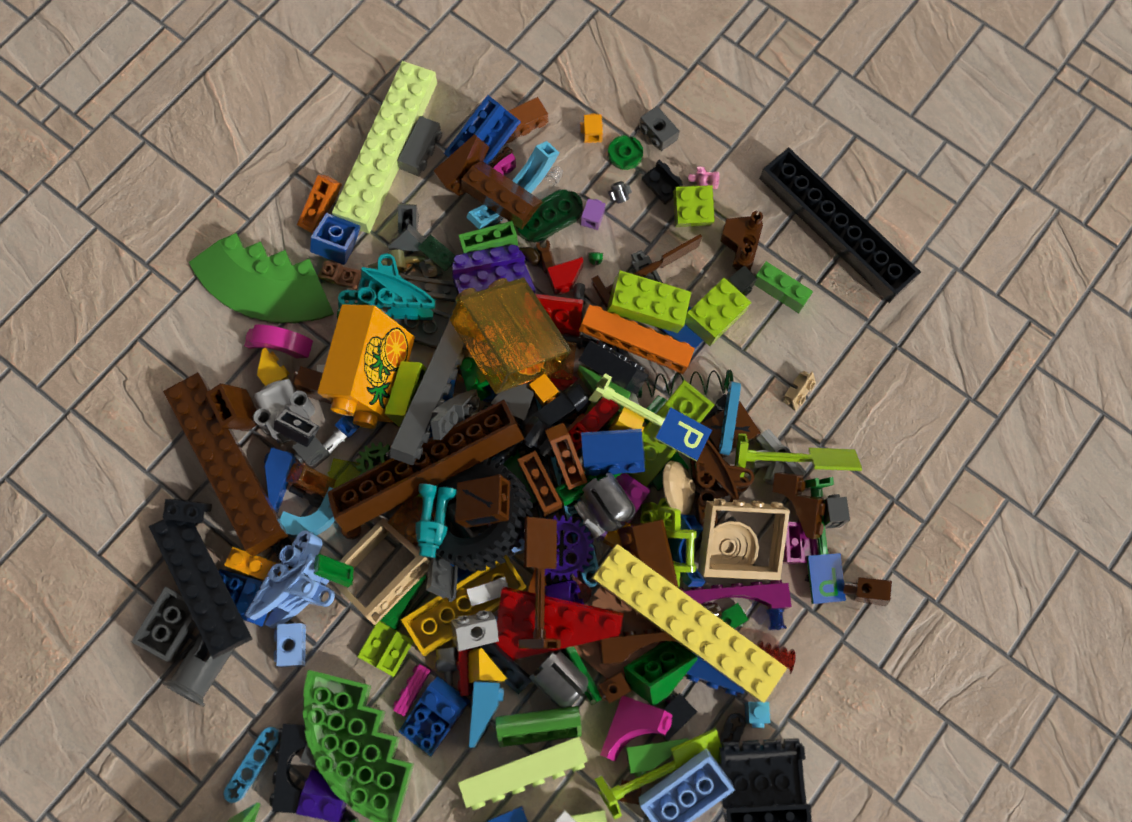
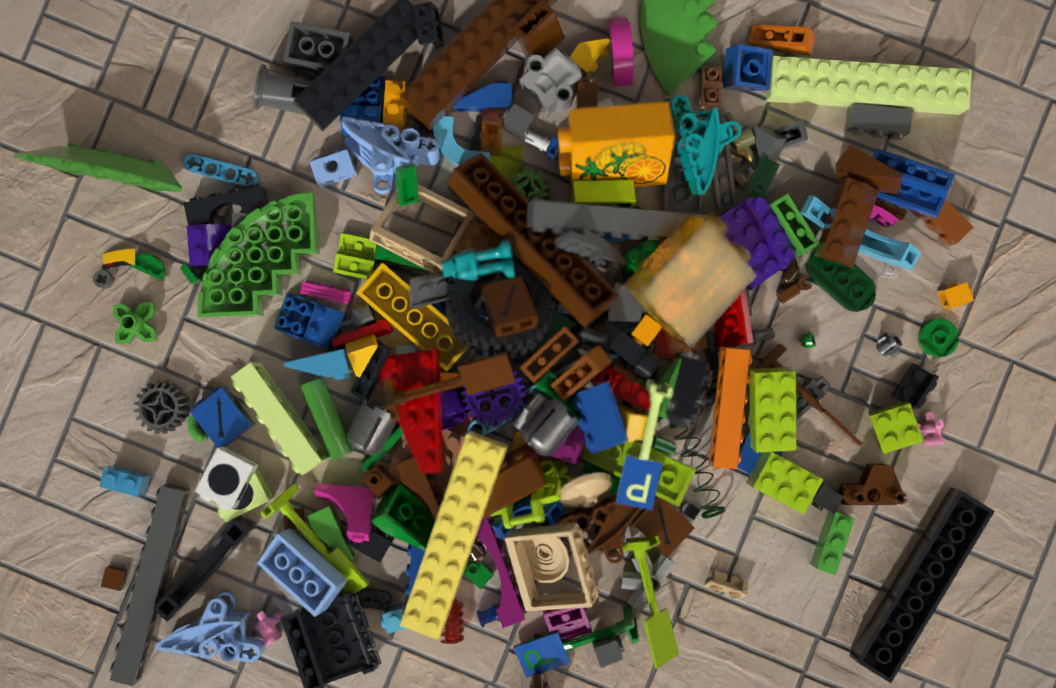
camera: 75 degrees right, 15 degrees up
(295, 427) = (533, 100): black slope -> none
(484, 634) = (390, 335): light grey brick -> none
(486, 591) = (431, 335): white sticker -> none
(564, 275) = (777, 314): red slope -> none
(593, 214) = (856, 324): medium lavender brick -> none
(657, 119) = (987, 361): dark grey brick -> none
(729, 419) = (672, 523): dark azure beam -> none
(807, 507) = (603, 622): reddish brown arch -> none

